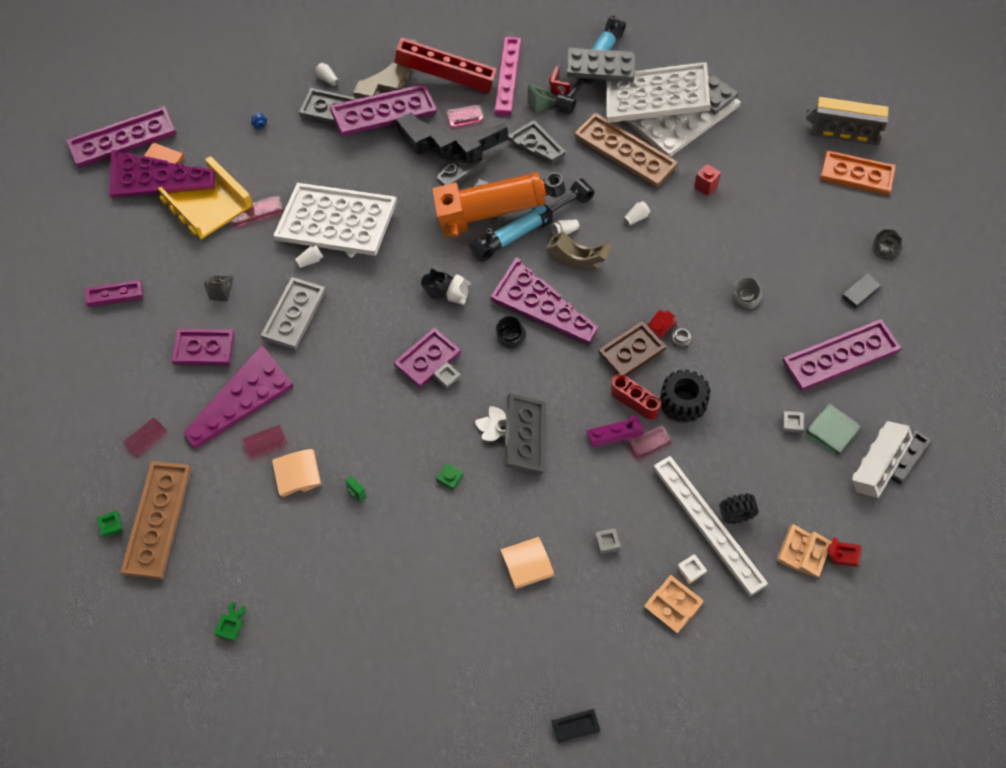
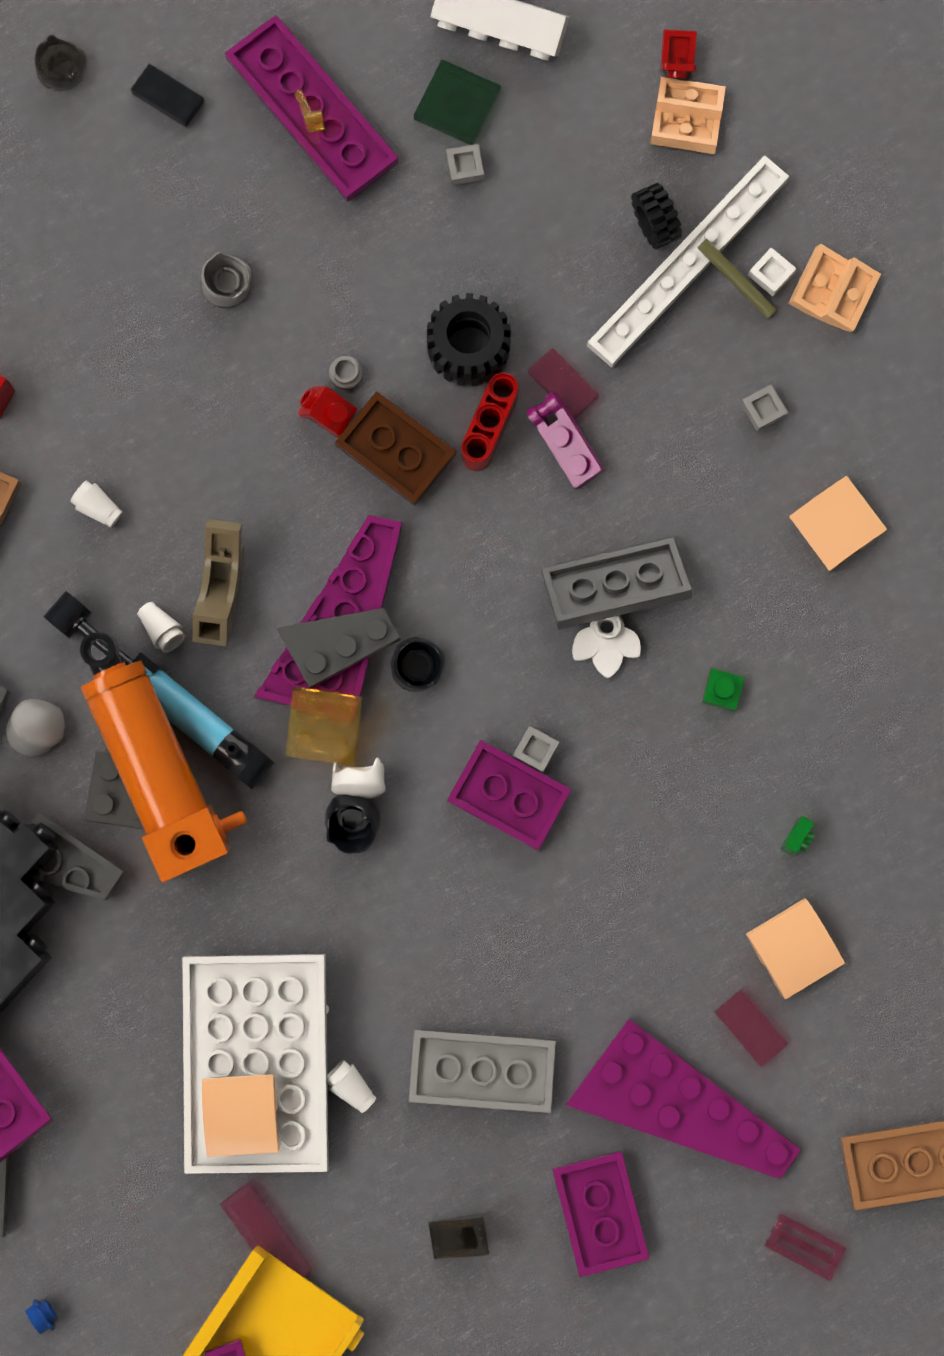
camera: 105 degrees left, 20 degrees up
(313, 203) = (240, 1115): none -> light nougat slope
(490, 282) = (324, 726): none -> clear yellow plate
(529, 164) = (35, 727): none -> light grey hair
(531, 296) = (337, 643): none -> dark grey wing
(691, 546) = (736, 278): none -> olive bar
(831, 349) = (314, 119): none -> clear yellow hand

